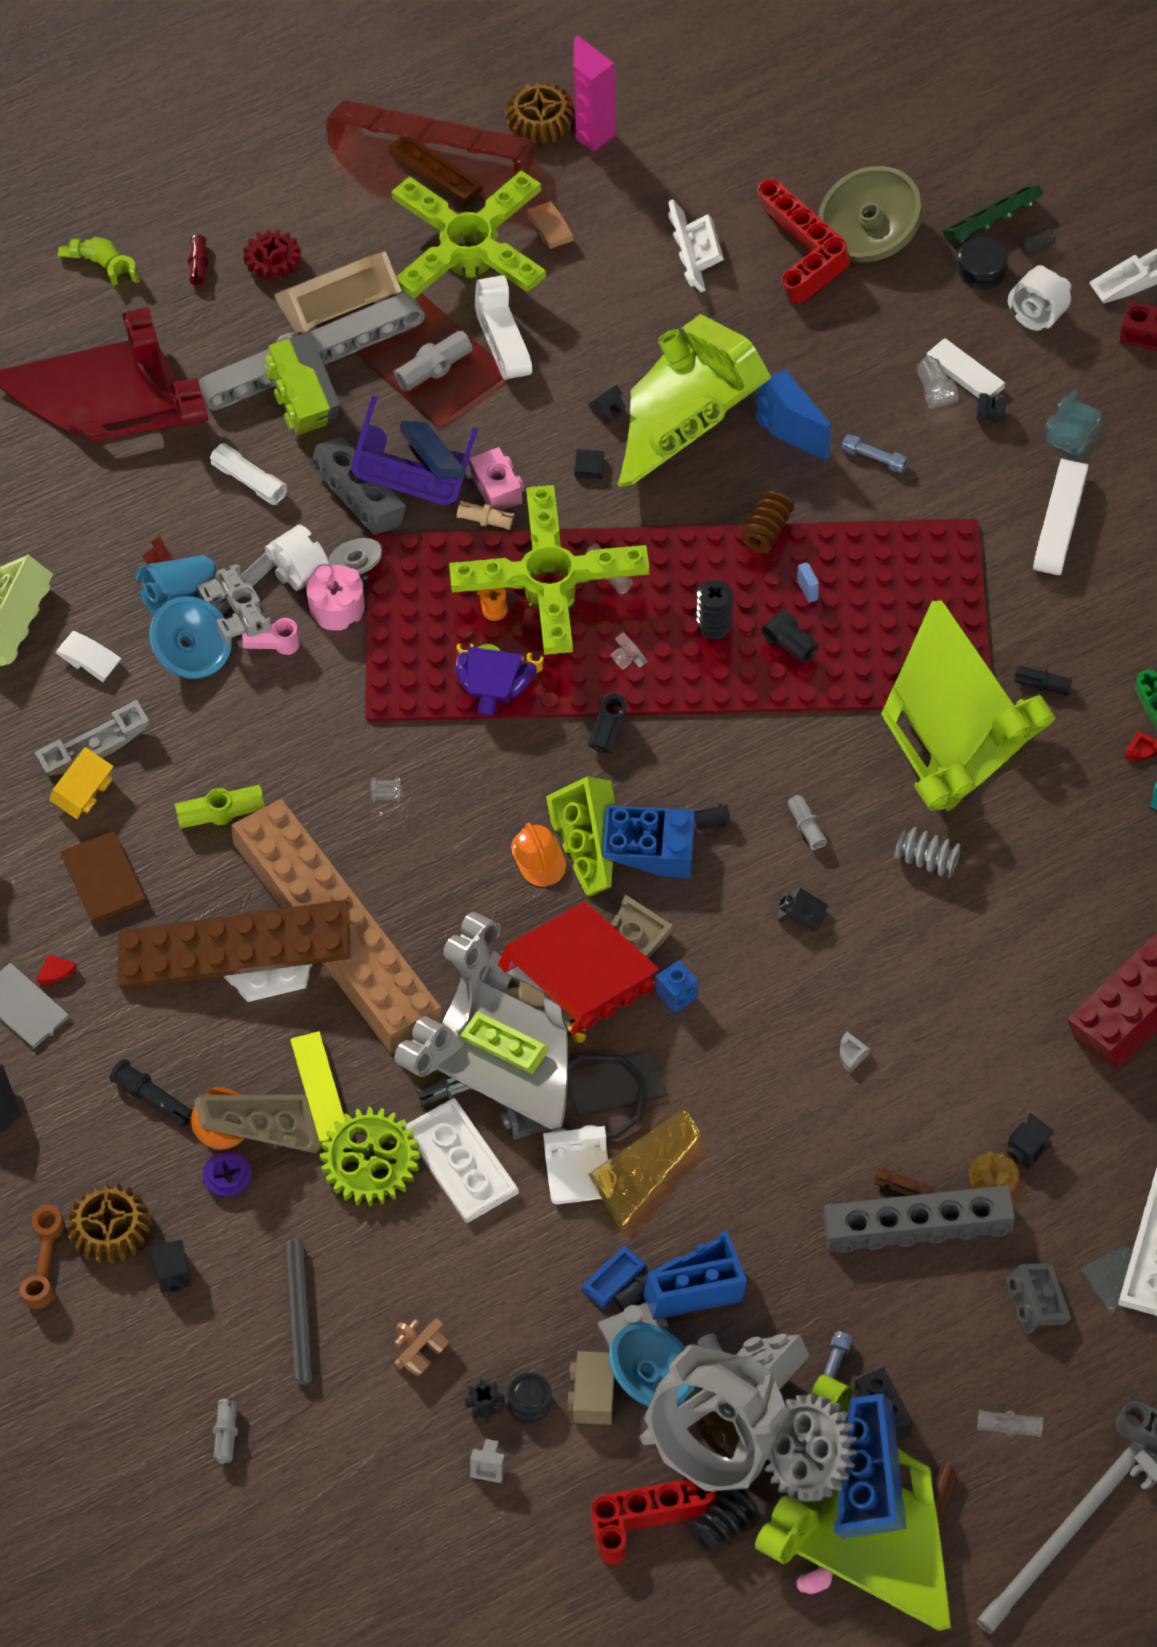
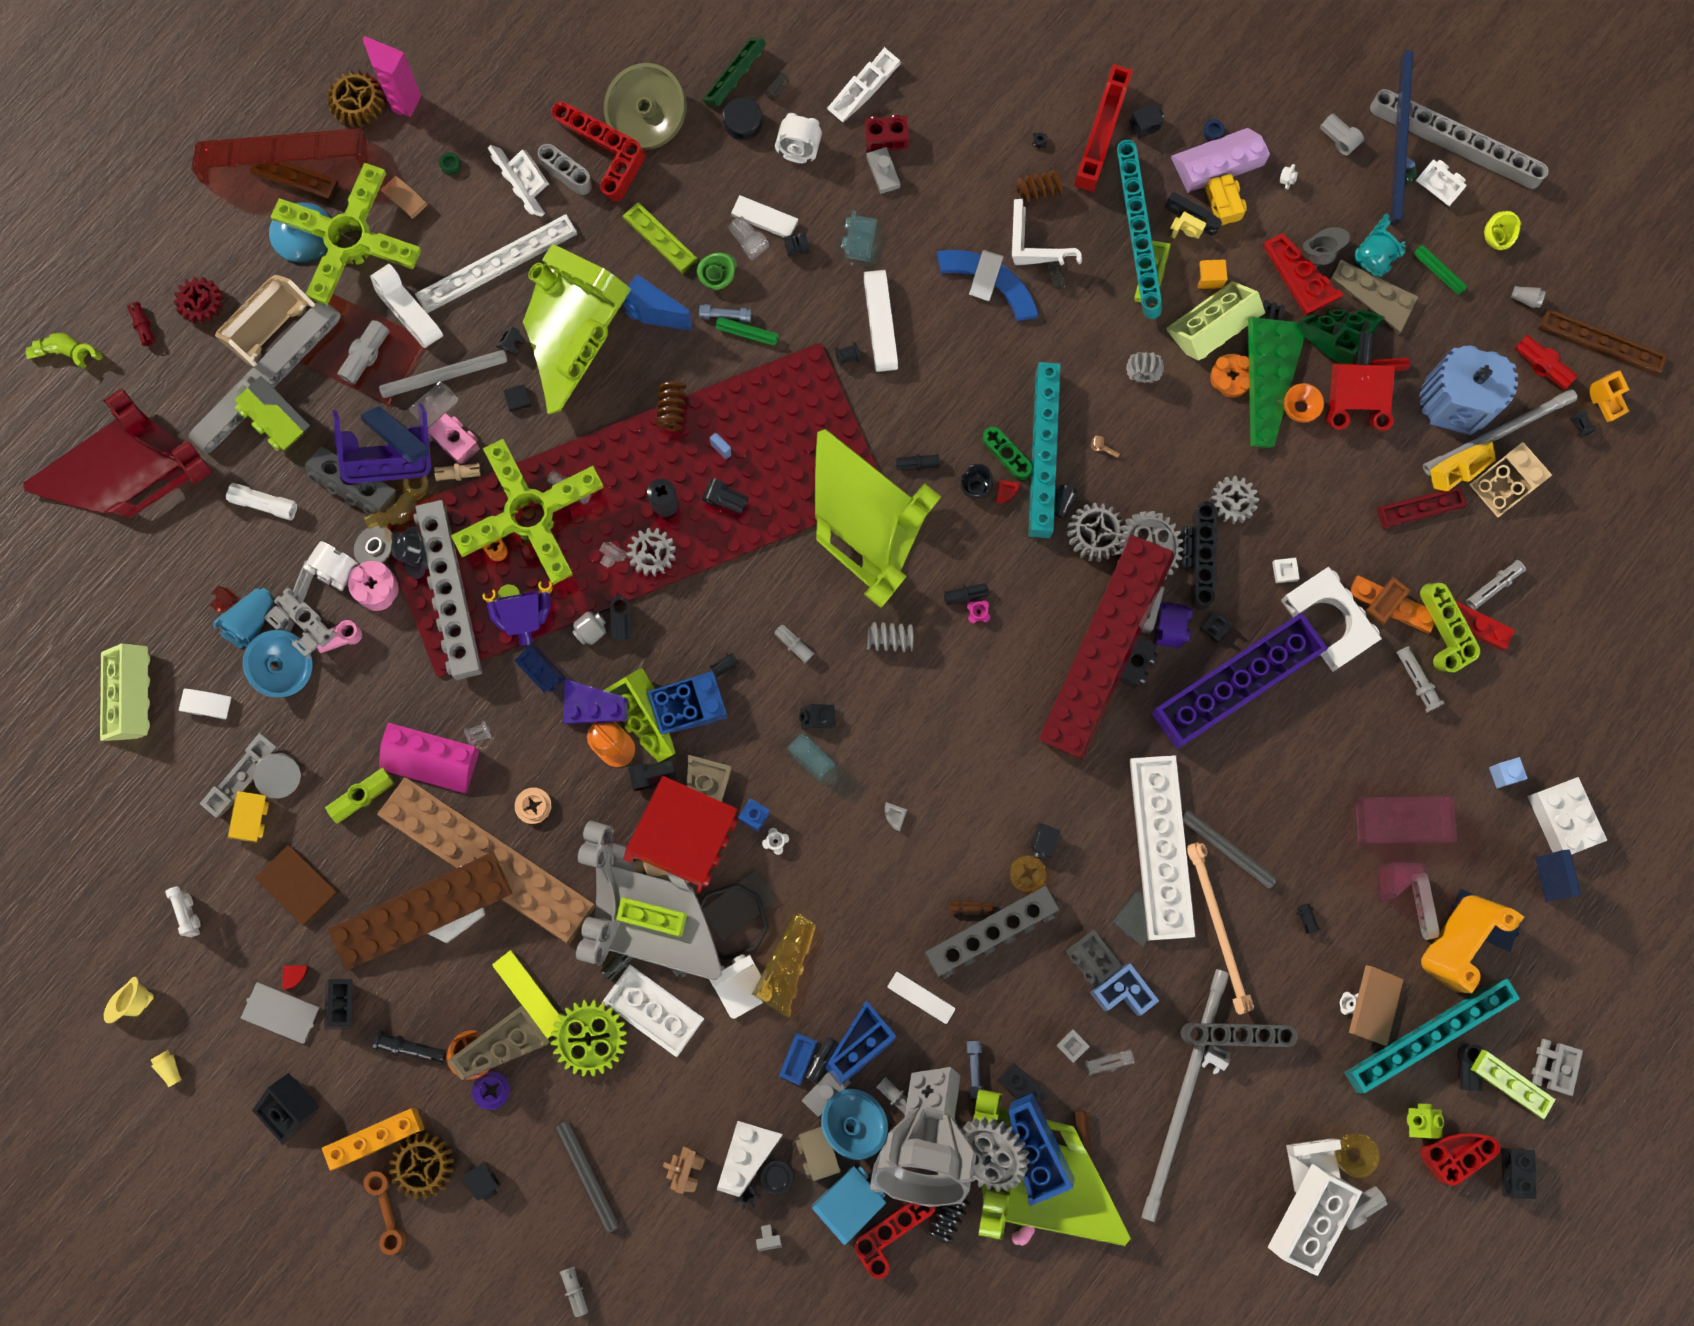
camera: 30 degrees left, 20 degrees up
(65, 1171) = (373, 1138): none -> light orange brick
(93, 1012) = (338, 1004): none -> black brick
(135, 752) = (276, 775): none -> light grey tile
(318, 794) = (427, 758): none -> dark pink slope
(394, 571) = (409, 549): none -> black piece
(404, 884) = (523, 801): none -> light nougat gear
(406, 232) = (296, 244): none -> dark azure dish
(406, 529) = (402, 510): none -> clear yellow piece
(433, 554) = (470, 664): none -> light grey brick
(489, 745) = (539, 668): none -> clear blue hinge
(497, 435) = (435, 402): none -> clear slope
(501, 1352) = (745, 1156): none -> white wing
(515, 412) = (443, 373): none -> light grey axle
(535, 802) = (592, 705): none -> dark purple wing
(562, 897) = (645, 776): none -> black piece
(567, 723) = (589, 628): none -> light grey head
(605, 1455) = (848, 1204): none -> dark azure slope
(618, 208) = (450, 163): none -> dark green tile
(623, 322) = (495, 264): none -> white tile
(664, 671) = (644, 557): none -> light grey gear
(687, 1020) = (776, 847): none -> white plate
(748, 251) = (560, 161): none -> light grey beam
(774, 948) = (811, 757): none -> clear light blue brick
(798, 1267) = (921, 997): none -> white sticker
(830, 355) = (660, 238): none -> lime tile
(883, 403) = (711, 271): none -> bright green hair
(893, 480) = (747, 331): none -> green axle
(968, 1382) = (1072, 1046): none -> light grey tile
(1005, 539) = (847, 354): none -> black bush
(1043, 839) = (965, 593): none -> black axle
(1052, 857) = (974, 616): none -> dark pink plate
(1062, 1336) = (1125, 985): none -> medium blue brick
(1109, 721) = (977, 481): none -> black hair
(1131, 365) = (883, 170): none -> light grey tile

